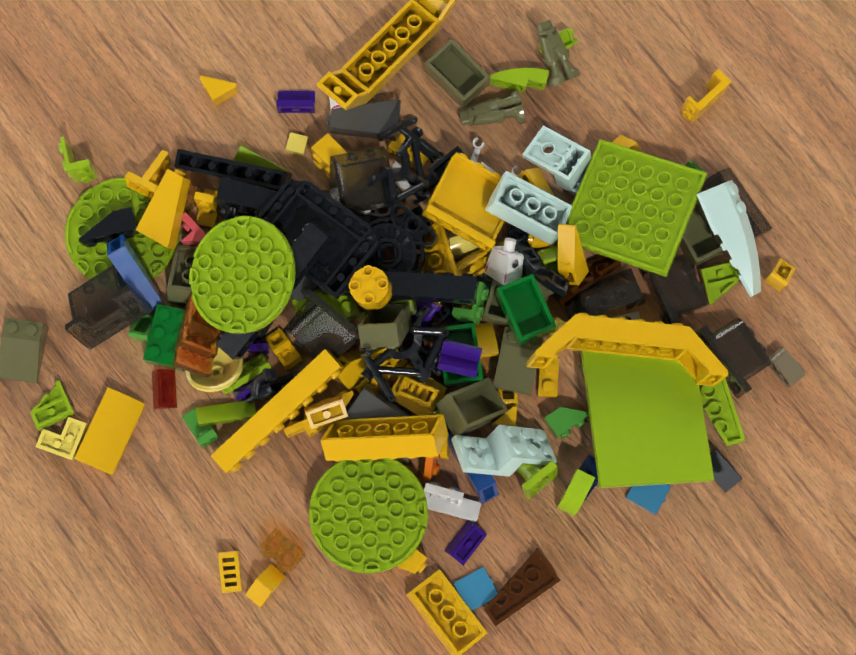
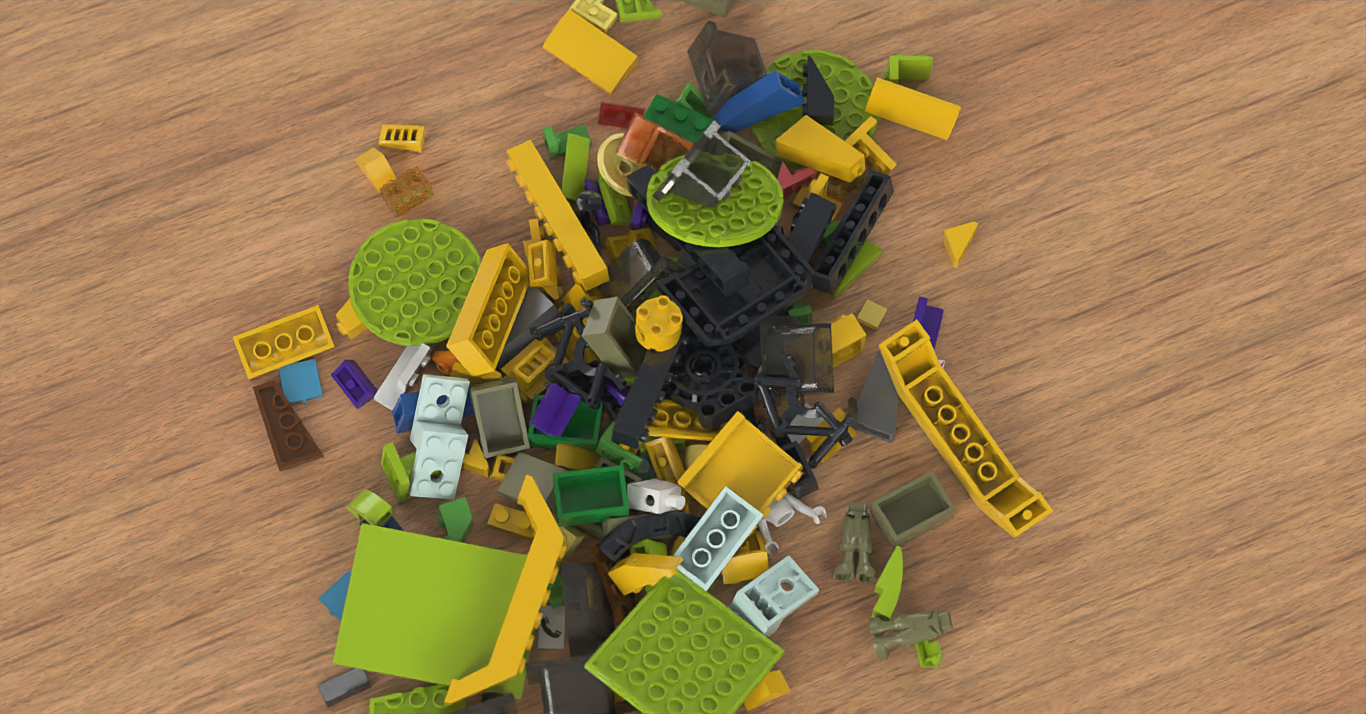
camera: 110 degrees right, 10 degrees down
(108, 148) = (912, 108): none -> yellow slope
(221, 286) = (706, 171): none -> clear smoke windscreen

